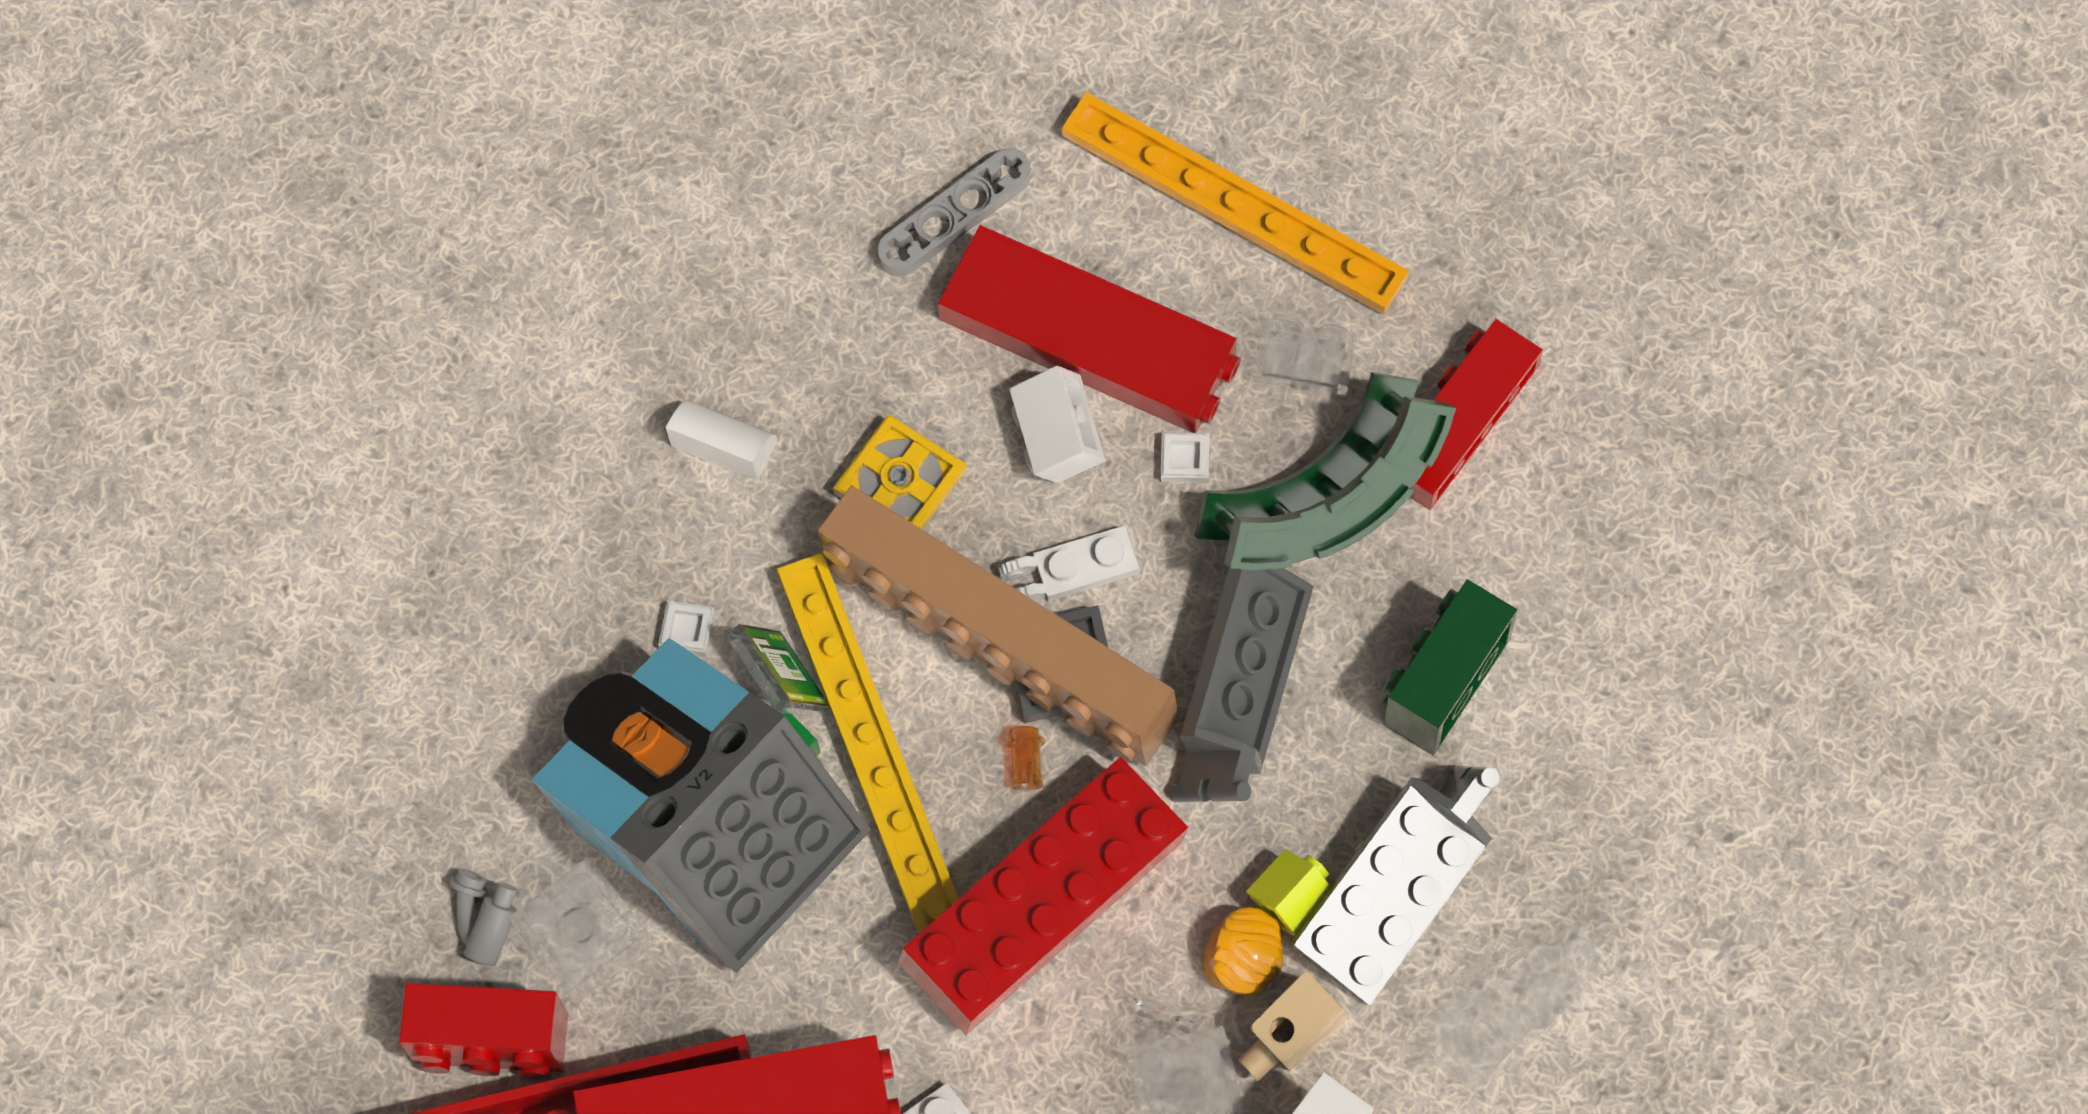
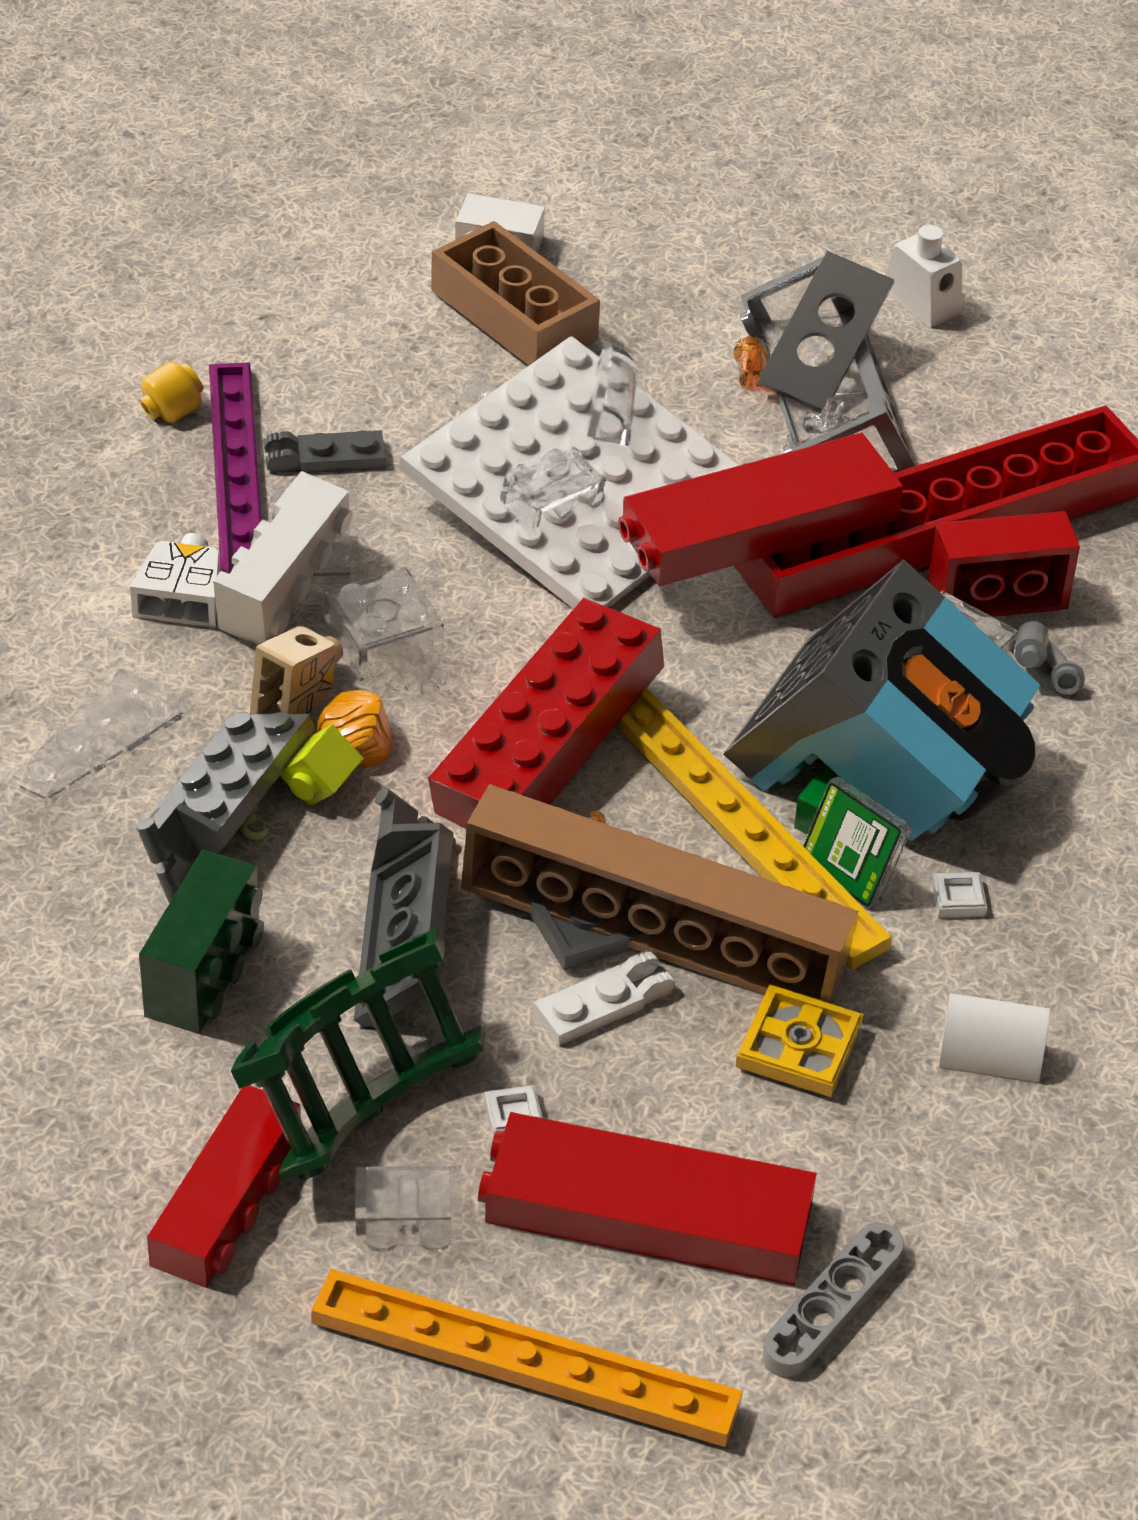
camera: 160 degrees right, 25 degrees down
(1056, 425) = (654, 1093): white brick -> none

